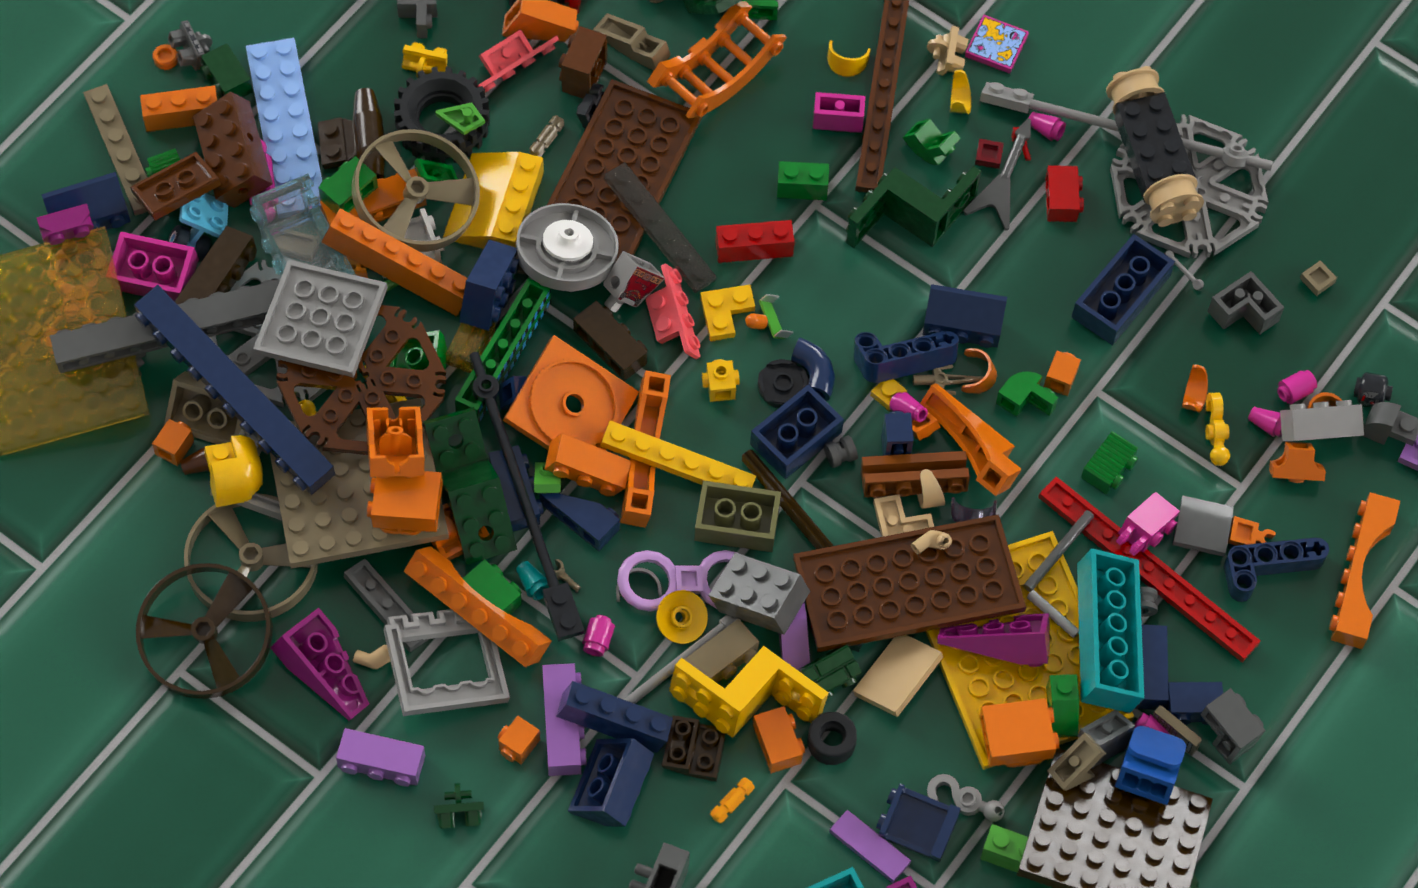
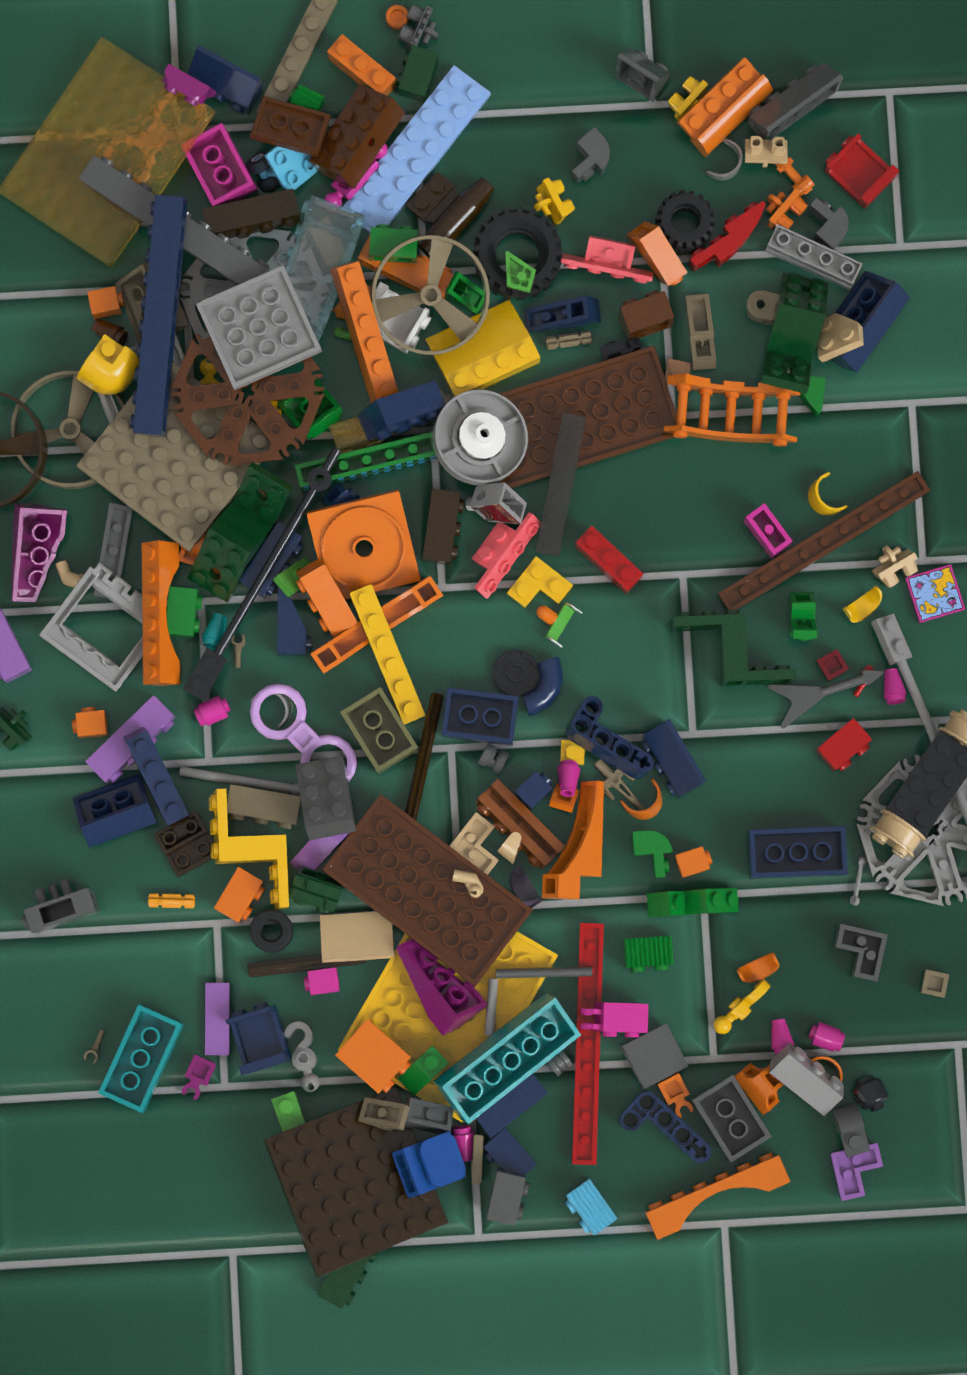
camera: 50 degrees right, 20 degrees up
(395, 444) = (208, 463): orange piece -> none
(406, 503) = (179, 505): orange brick -> none
(523, 121) = (563, 314): none -> dark blue slope
(640, 82) = (676, 367): none -> medium nougat plate
(693, 614) = (268, 764): yellow dish -> none
(720, 380) = (474, 638): yellow brick -> none
(803, 180) = (689, 552): green brick -> none
(879, 744) = (294, 965): none -> dark brown axle
(913, 731) = (322, 981): none -> dark pink brick
(1099, 392) = (692, 902): none -> green arch
(1293, 674) = (590, 1207): none -> medium azure brick
(1307, 505) = (731, 1118): none -> dark grey brick

